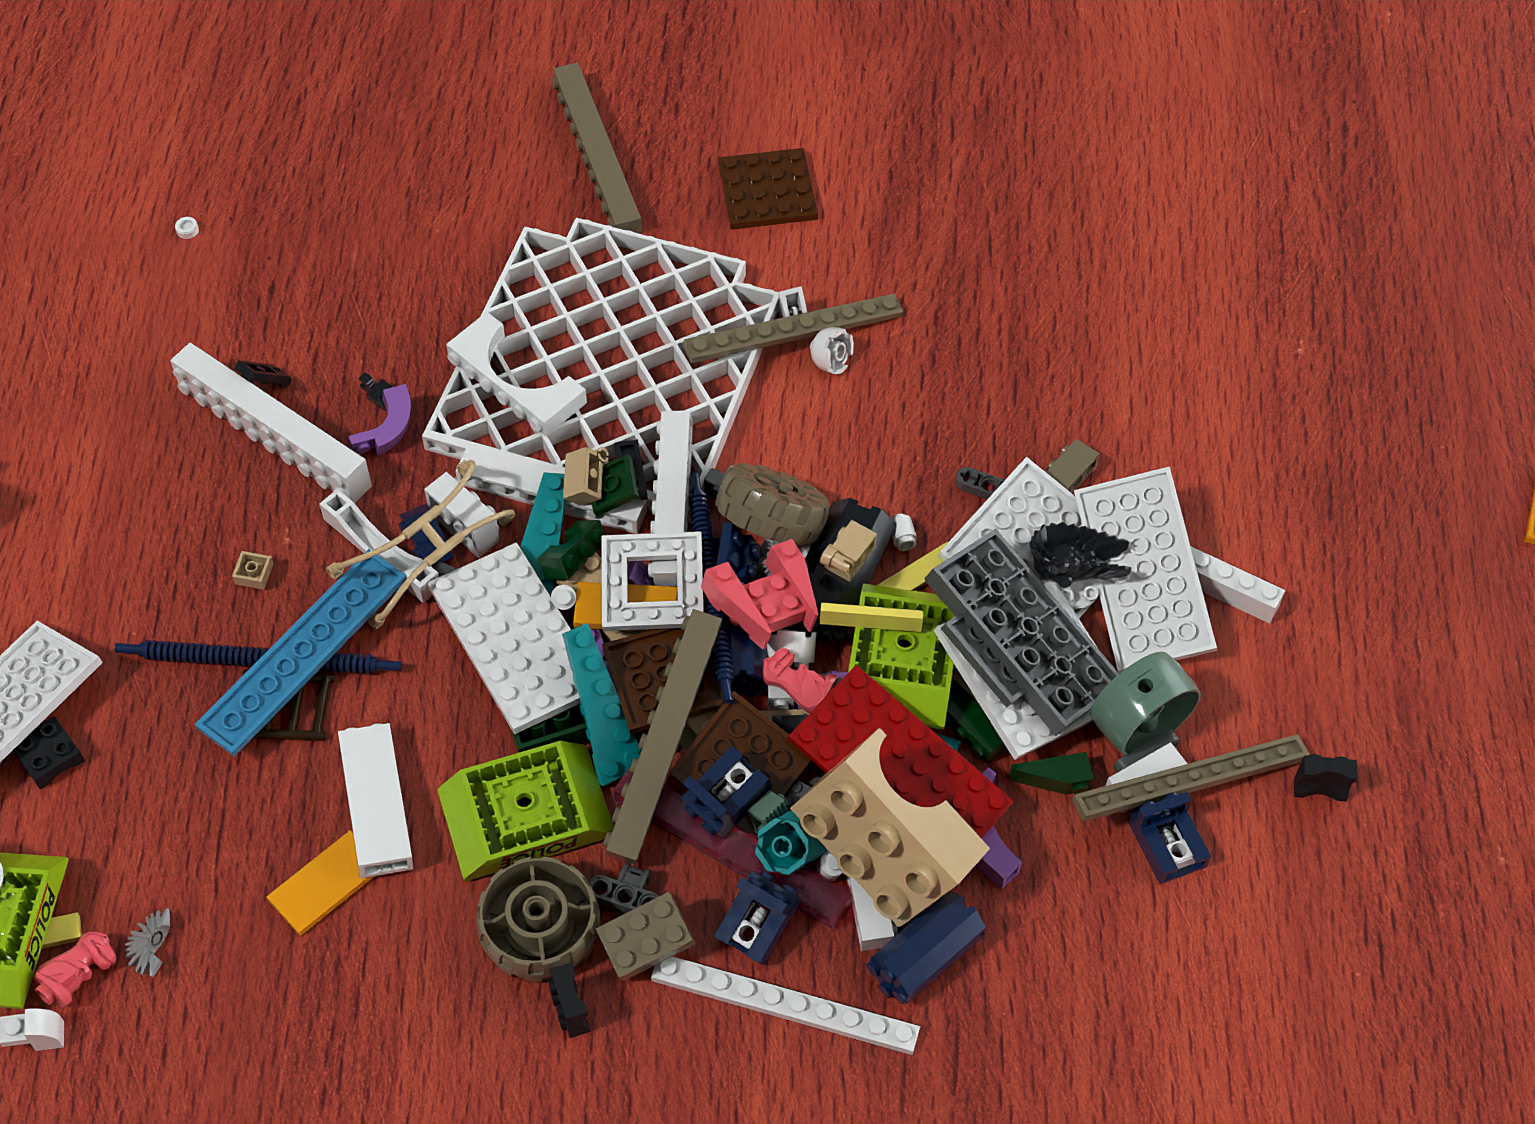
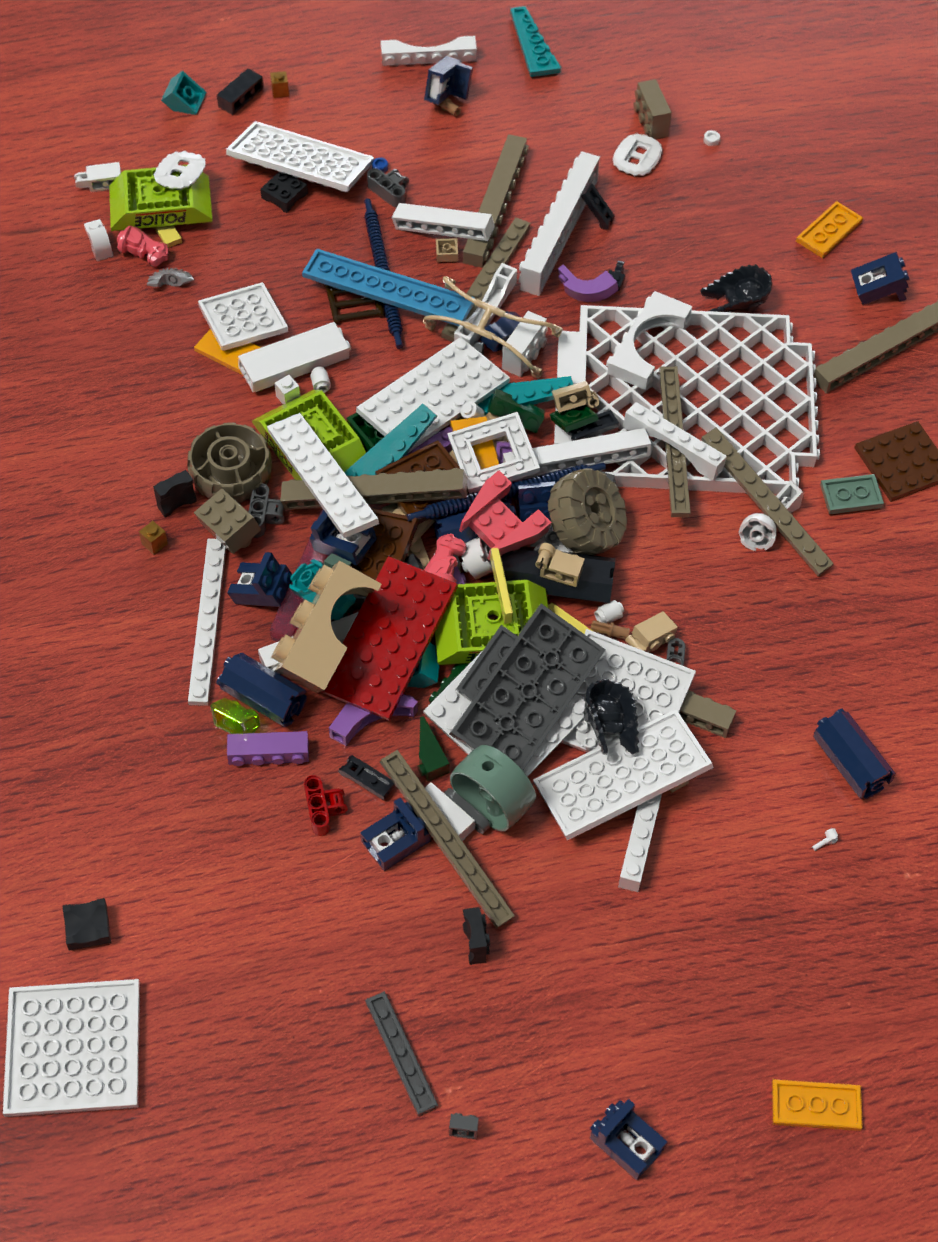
camera: 75 degrees right, 0 degrees up
(52, 617) = (381, 164): none -> blue tile
(99, 606) = (388, 186): none -> dark grey piece
(117, 270) = (652, 109): none -> dark tan brick
(167, 325) = (627, 150): none -> white piece
(189, 491) = (497, 195): none -> dark tan brick
(210, 557) = (443, 221): none -> white brick
(270, 853) = (242, 316): none -> white plate
(302, 522) = (500, 255): none -> dark tan plate
(393, 154) = (829, 229): none -> light orange tile
(424, 776) = (320, 379): none -> white brick
(430, 821) = (286, 389): none -> white brick
(465, 260) = (742, 288): none -> black piece
(505, 107) = (881, 278): none -> dark blue brick
(629, 787) = (323, 476): none -> white plate
(631, 1047) = (153, 537): none -> pearl gold brick
(682, 391) = (675, 459): none -> dark tan plate
(719, 367) = (702, 456): none -> white arch
(801, 249) = (851, 494): none -> sand green plate
(927, 537) = (610, 629): none -> medium nougat axle
(947, 495) = (652, 633): none -> tan hinge
(960, 991) = (233, 717): none -> clear neon green slope
(1010, 963) = (268, 748): none -> medium lavender brick
(1076, 854) = (367, 777): none -> black plate
(1107, 904) = (328, 804): none -> red piece
(1157, 346) = (853, 754): none -> dark blue brick
(1247, 401) = (831, 838): none -> white hand
(1451, 899) = (401, 1054): none -> dark grey tile

